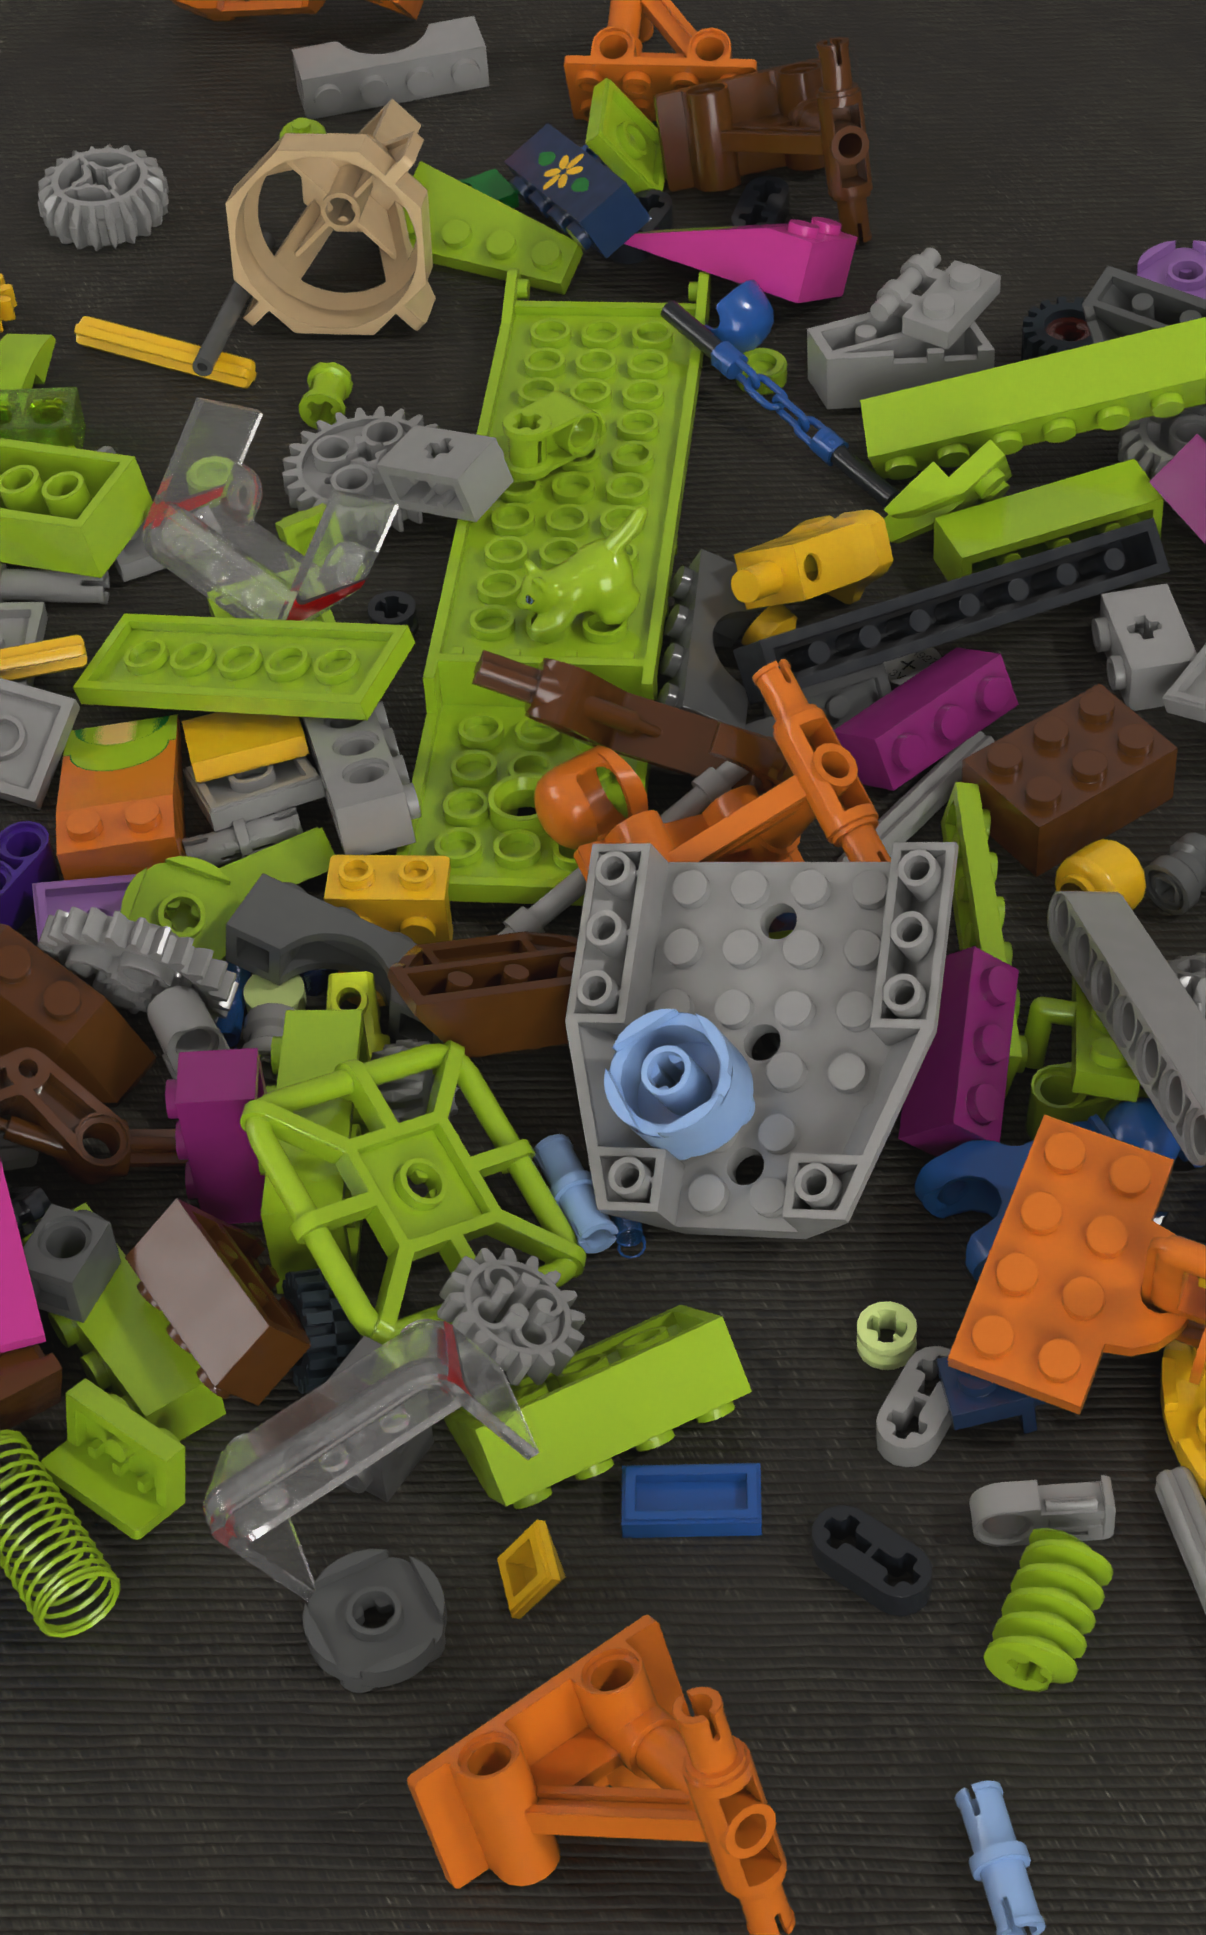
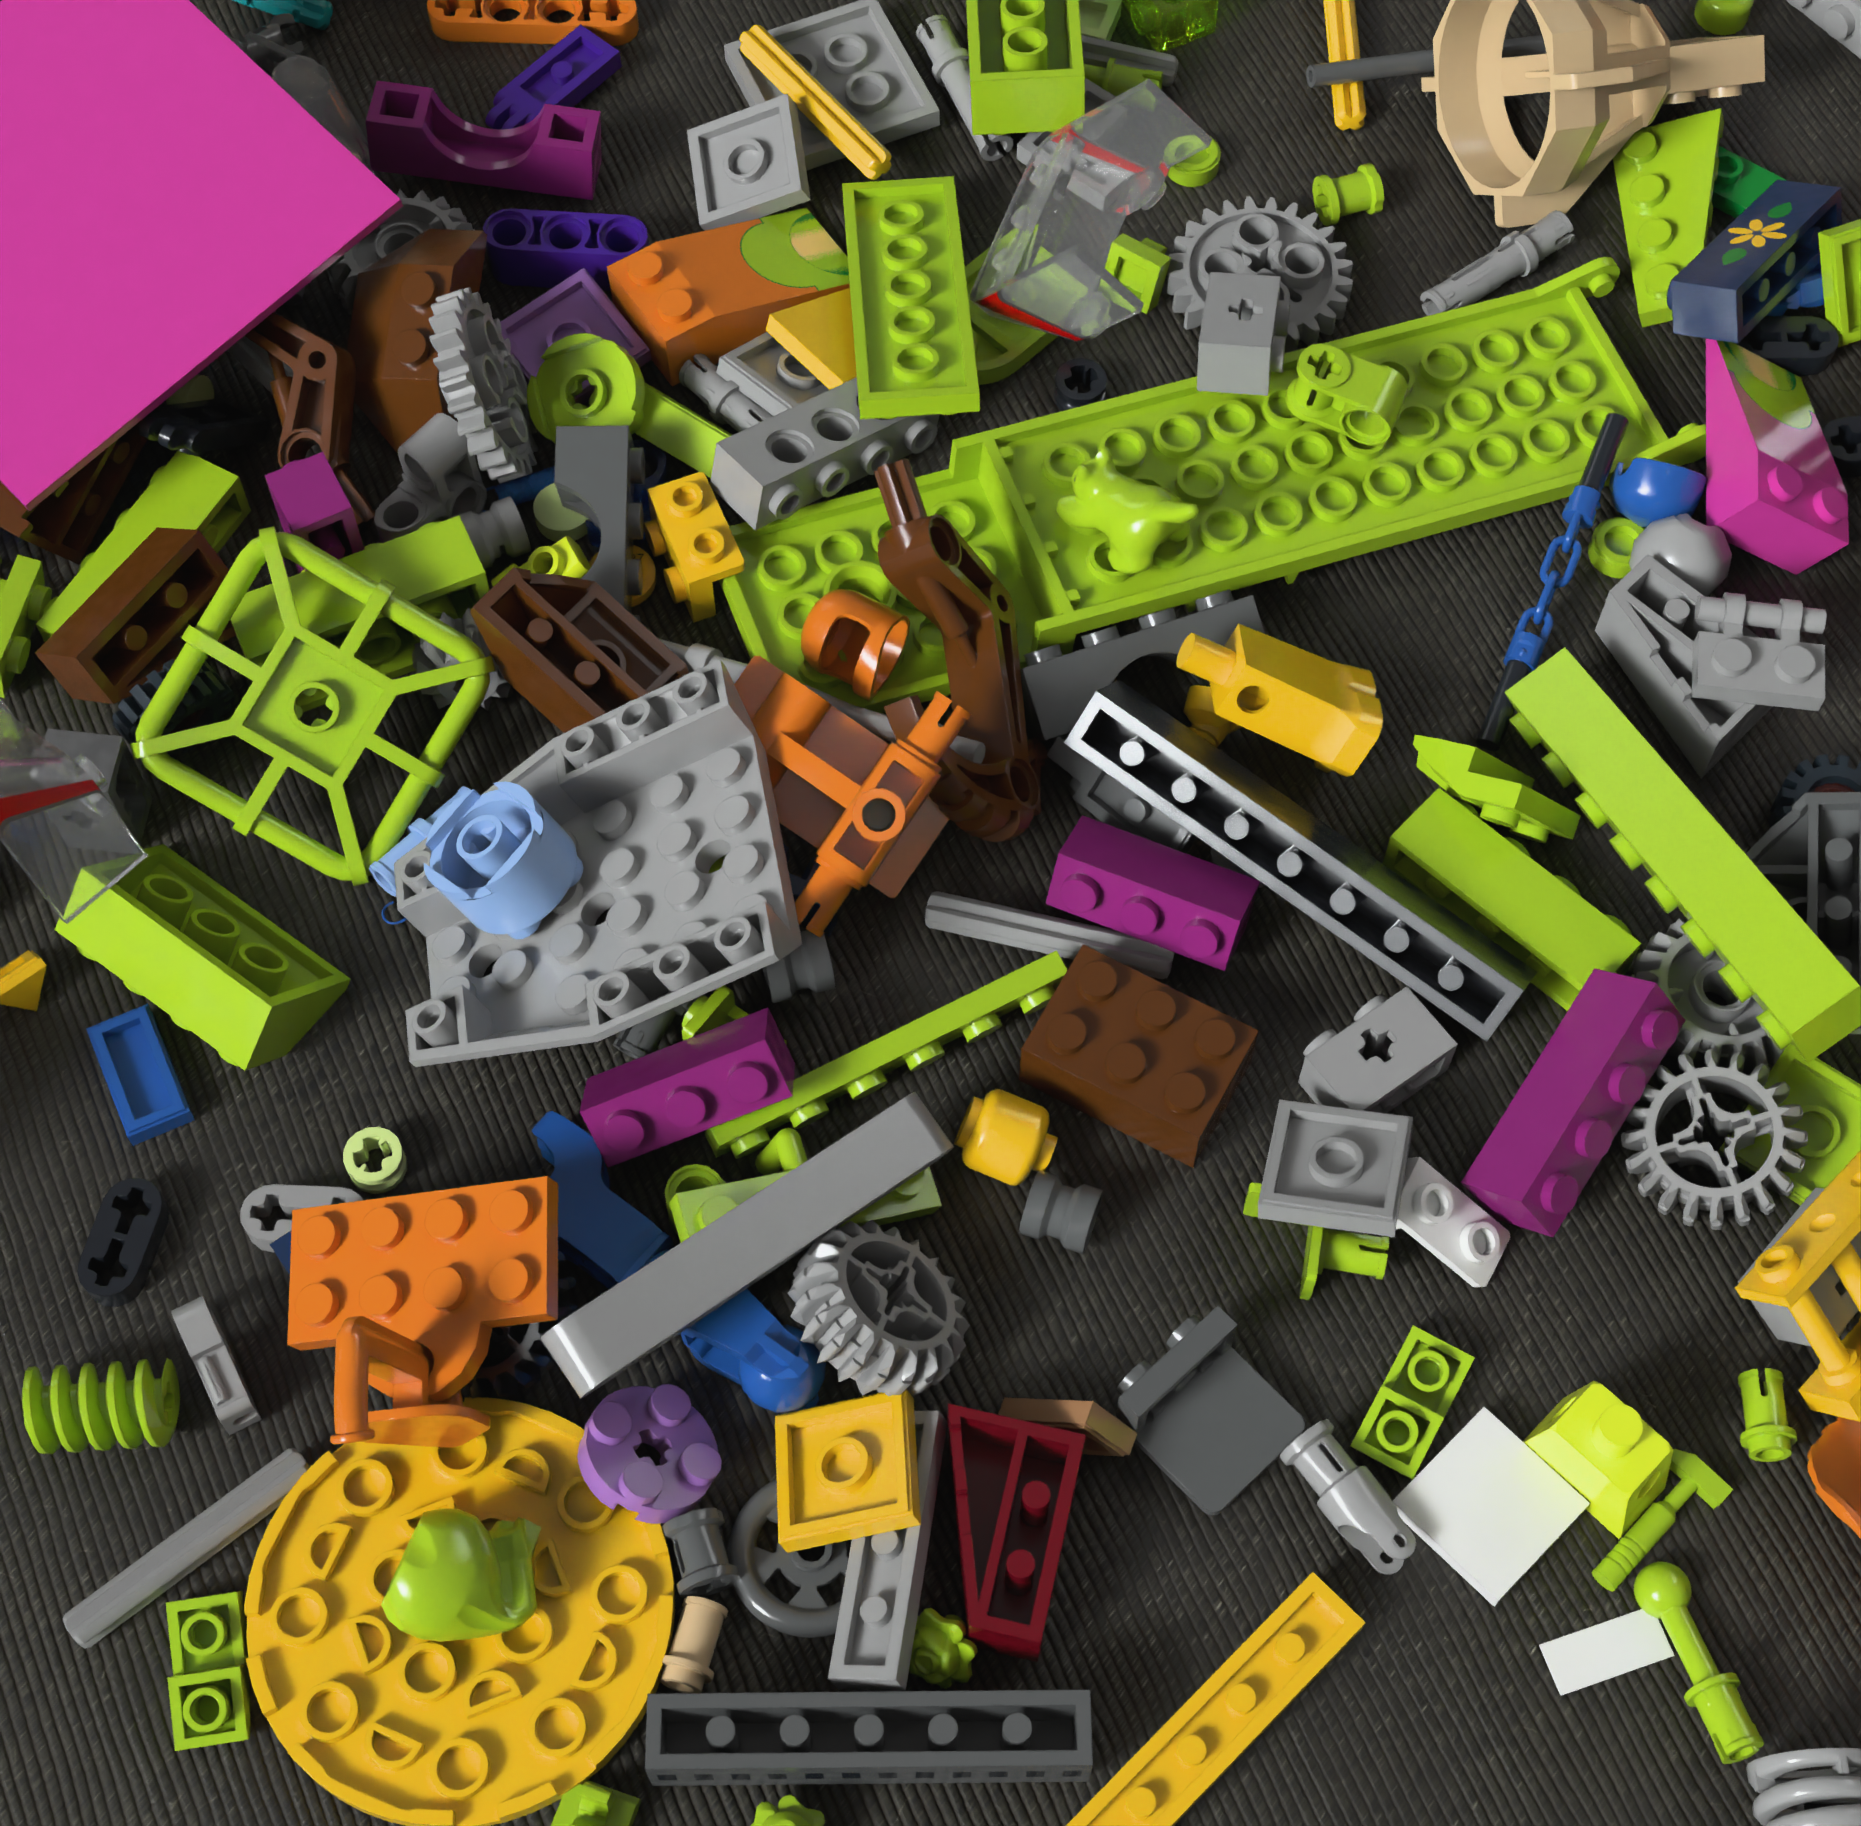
camera: 60 degrees right, 15 degrees up
(71, 1261) = (145, 490): dark grey brick -> none
(456, 328) = (1513, 257): none -> light grey pin
(503, 1292) = (212, 804): light grey gear -> none
(791, 323) = (1686, 548): none -> light grey hair

